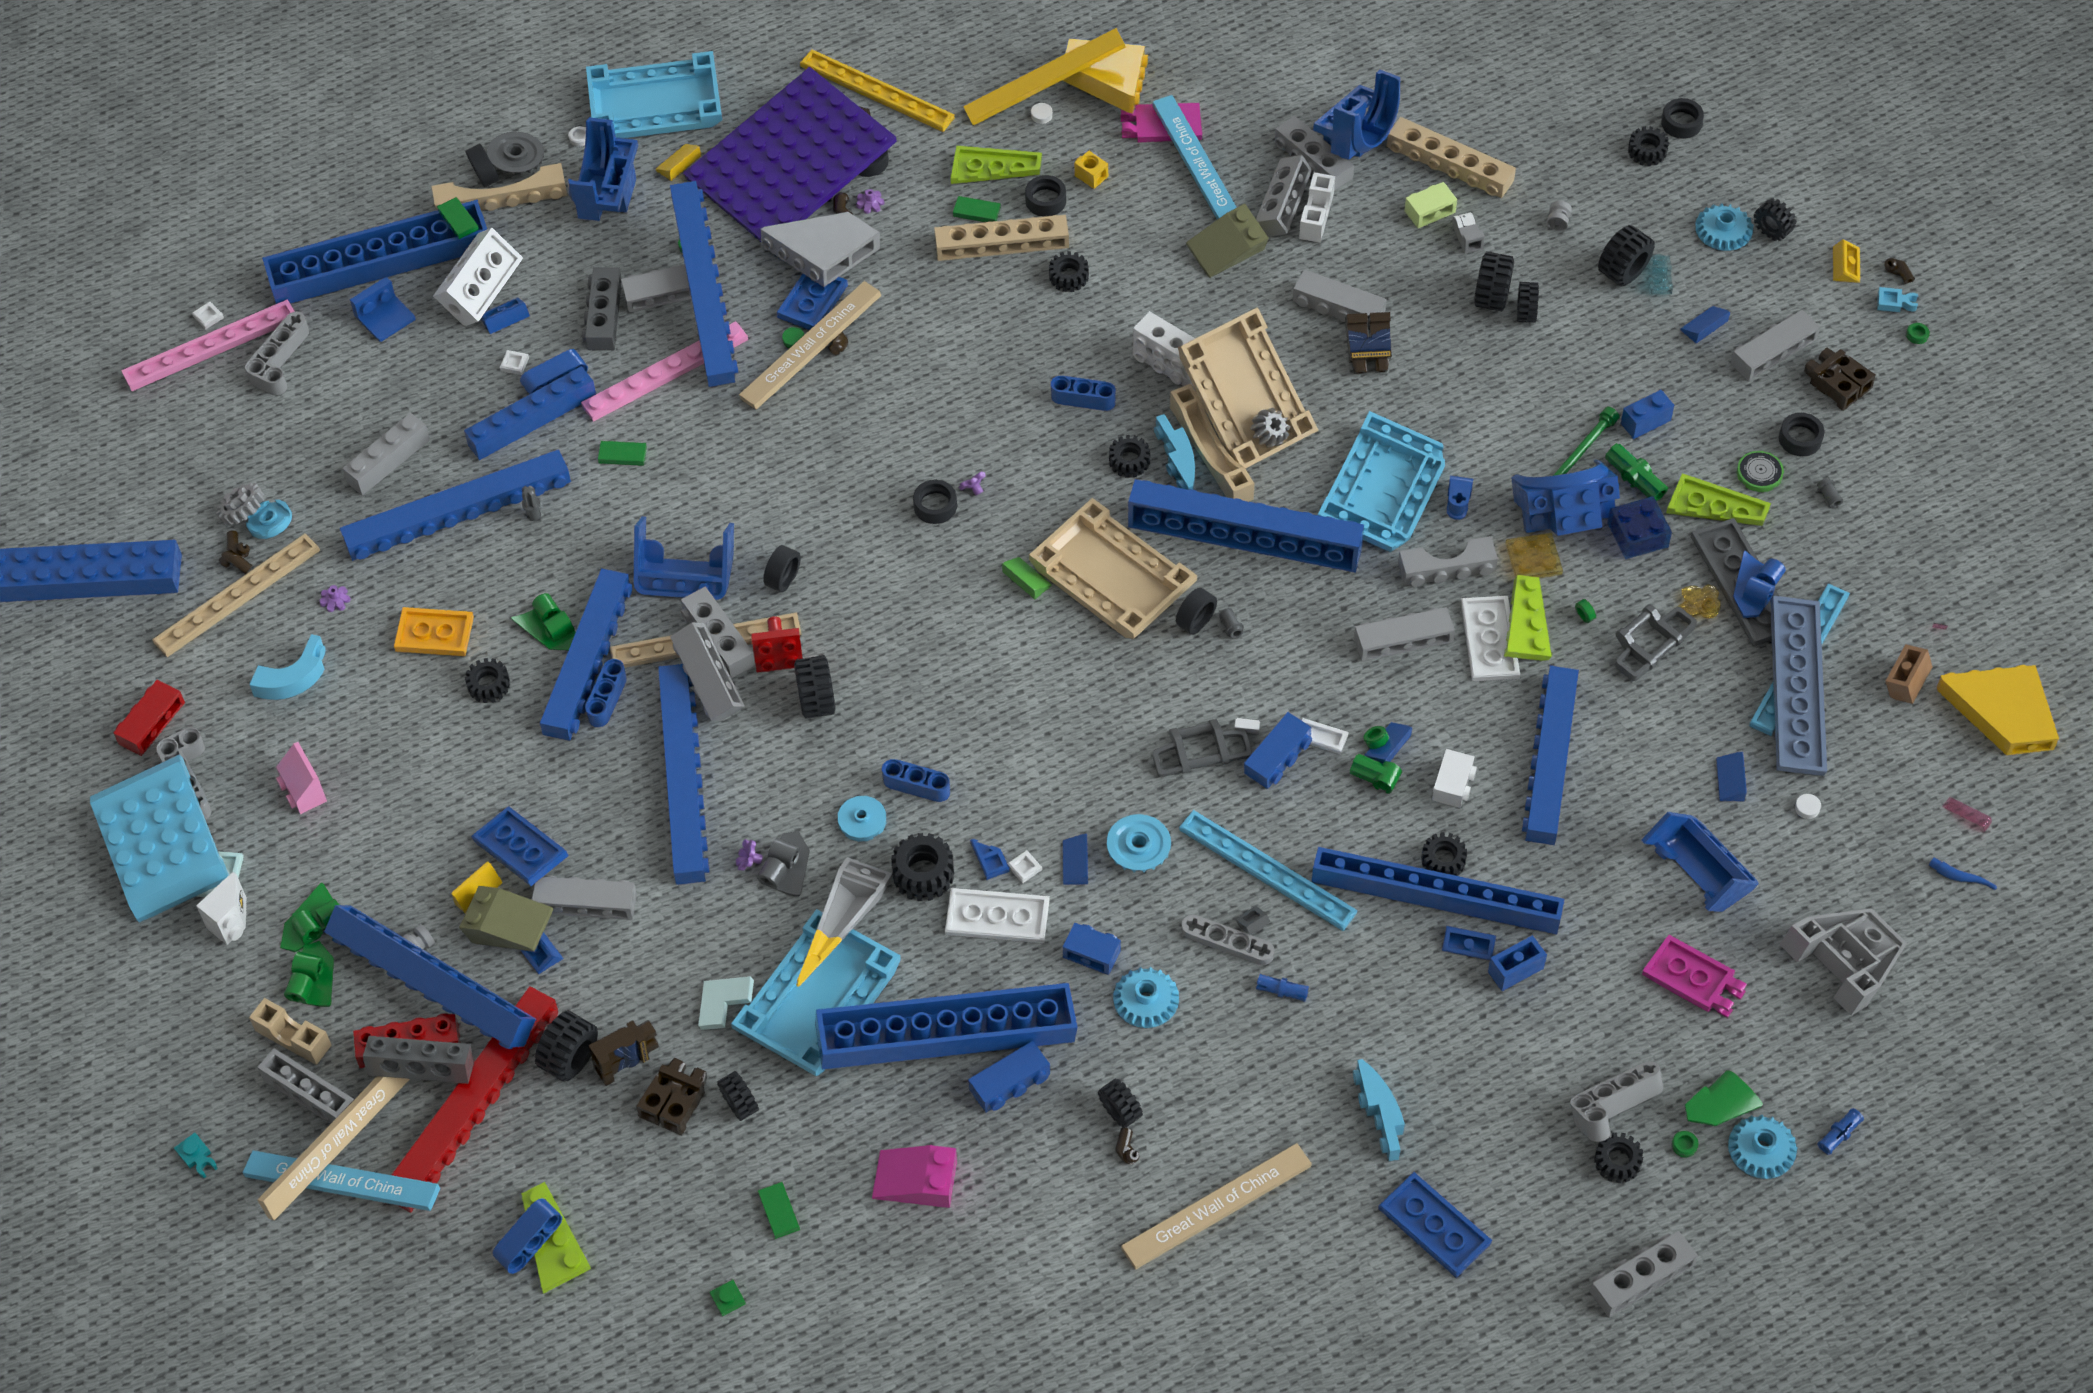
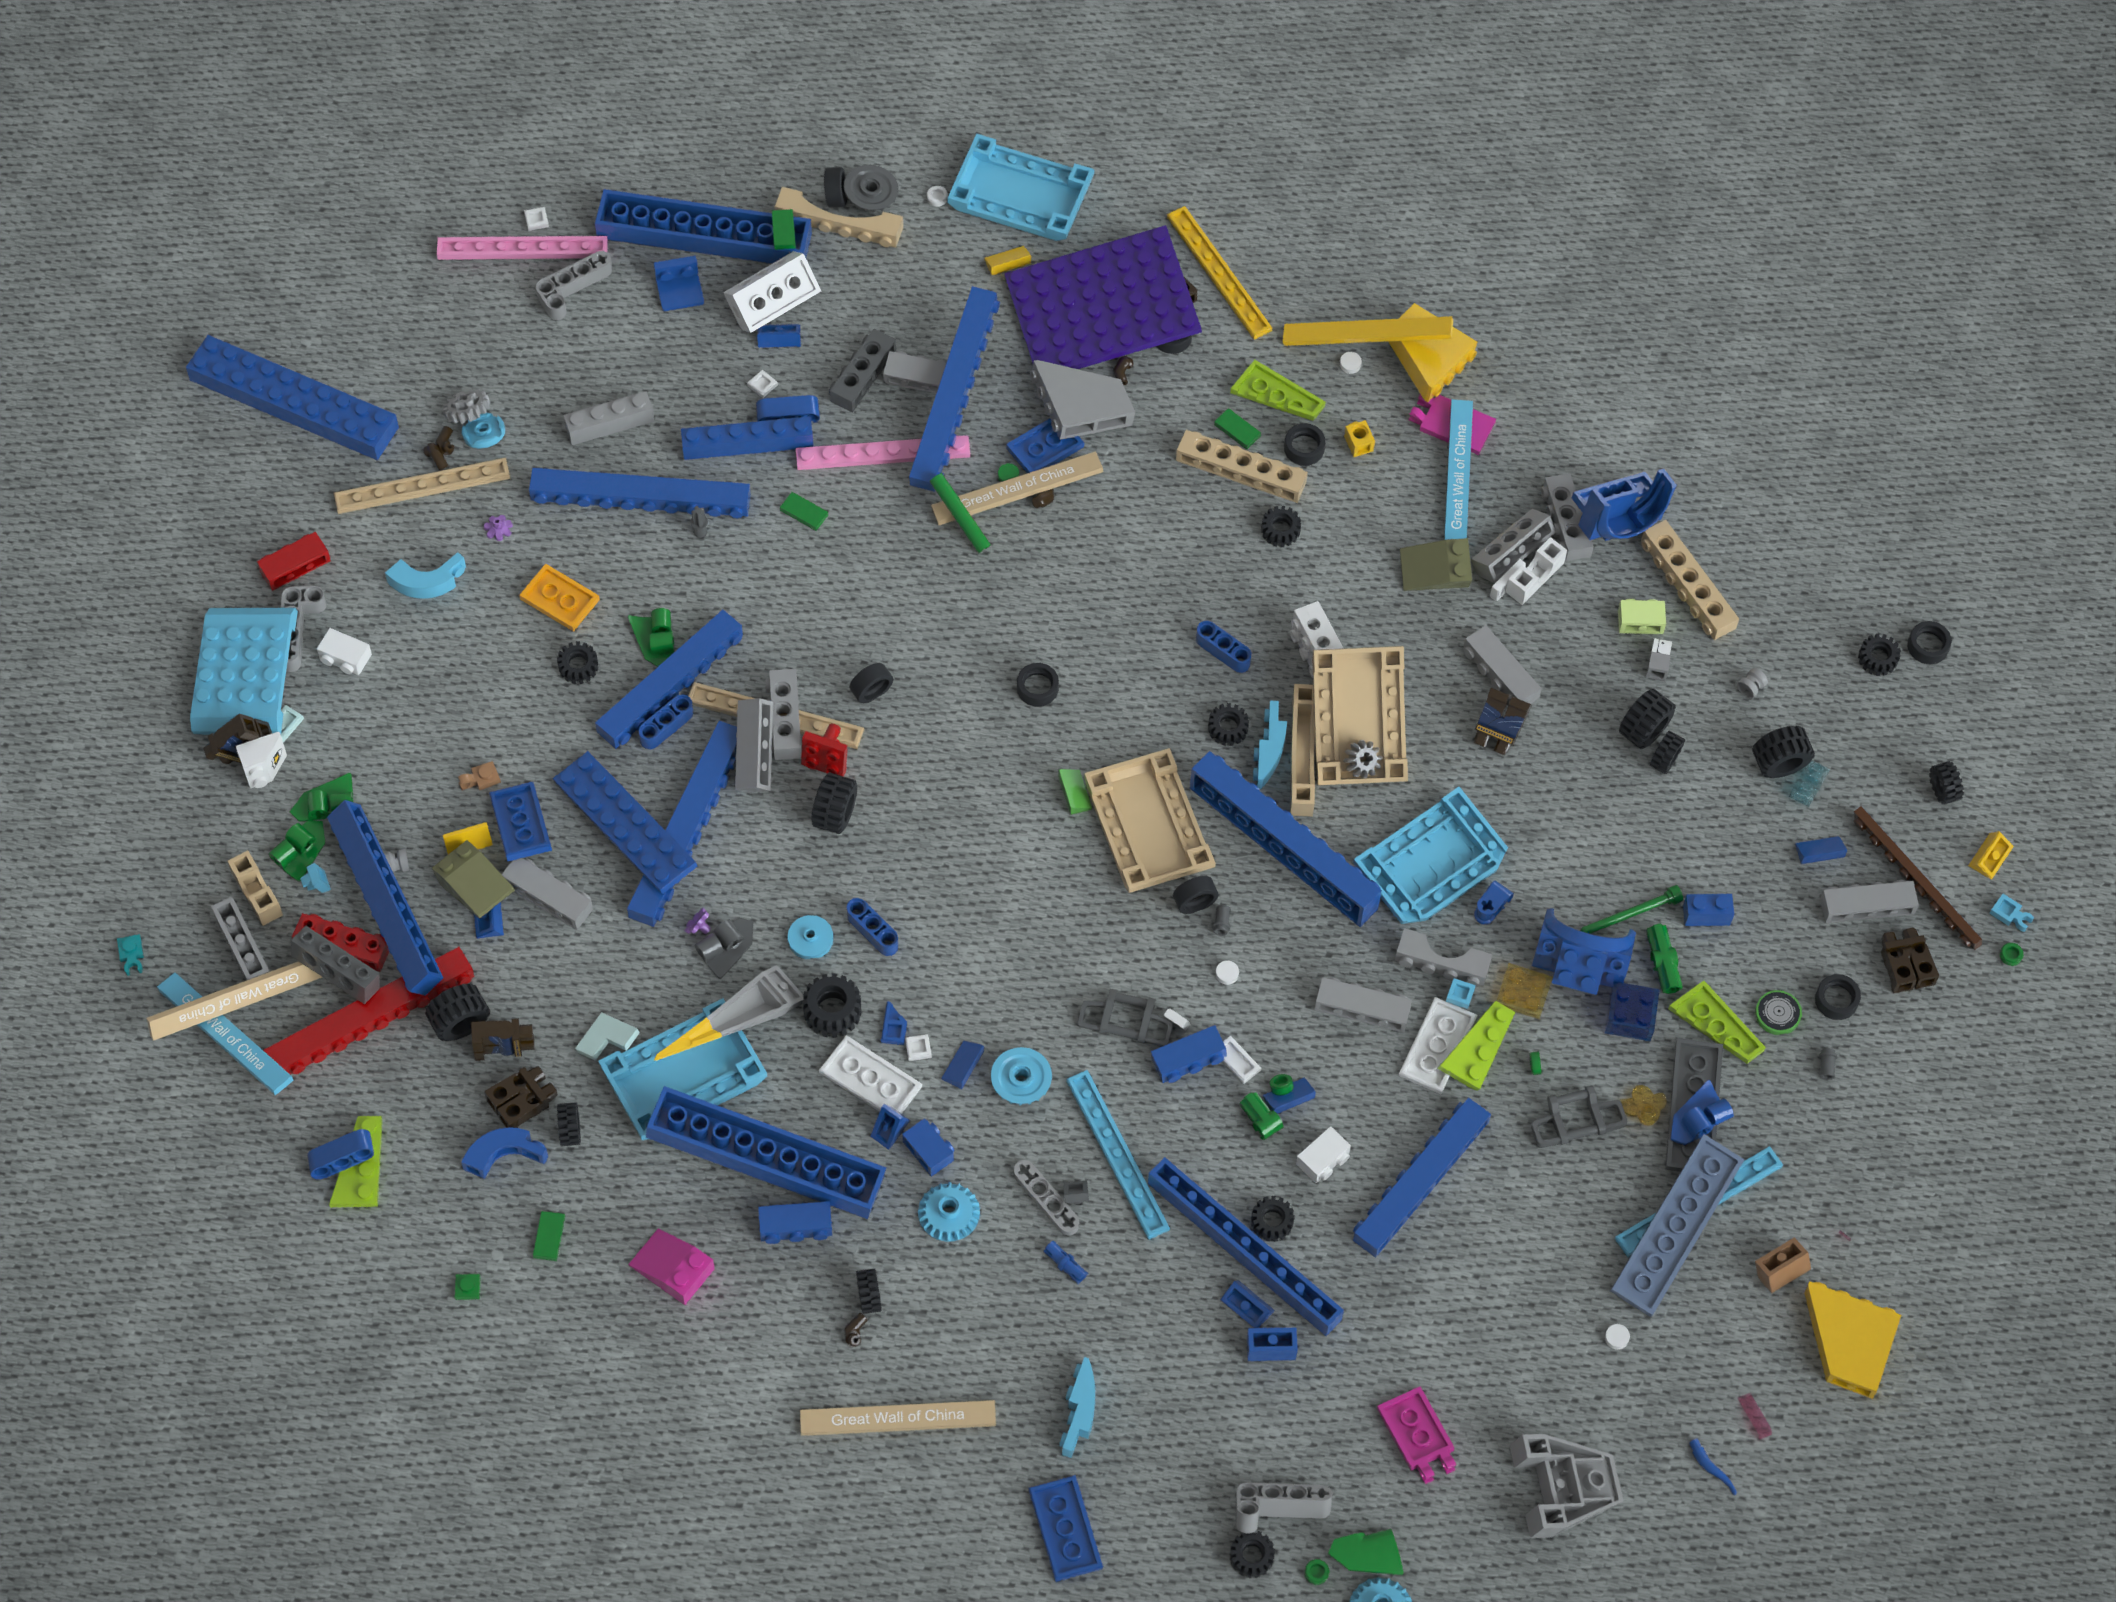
camera: 25 degrees right, 5 degrees up
(181, 908) = (233, 733): none -> dark brown hips
(249, 776) = (344, 652): none -> white brick
(299, 780) = (380, 676): bright pink slope -> none
(345, 995) = (315, 879): none -> medium azure tile
(454, 824) = (482, 776): none -> medium nougat plate
(606, 172) = (934, 247): blue piece -> none
(623, 798) = (625, 822): none -> blue plate
(680, 577) = (784, 646): blue windscreen -> none
(681, 1146) = (499, 1143): none -> blue arch
(772, 386) = (960, 513): none -> green piece
(869, 201) = (1150, 376): medium lavender plant -> none
(973, 483) = (1080, 684): medium lavender plant -> none
(1044, 947) = (889, 1126): none -> blue slope
(1264, 666) = (1227, 972): none -> white tile
(1293, 237) = (1499, 587): none -> white tile
(1483, 583) = (1460, 993): none -> medium azure tile
(1703, 858) = (1494, 1336): blue windscreen -> none
(1724, 227) = (1899, 777): medium azure gear -> none
(1731, 777) = (1566, 1276): blue slope -> none
(1792, 304) = (1922, 884): none -> reddish brown plate
(1899, 268) = (2036, 883): dark brown arm -> none

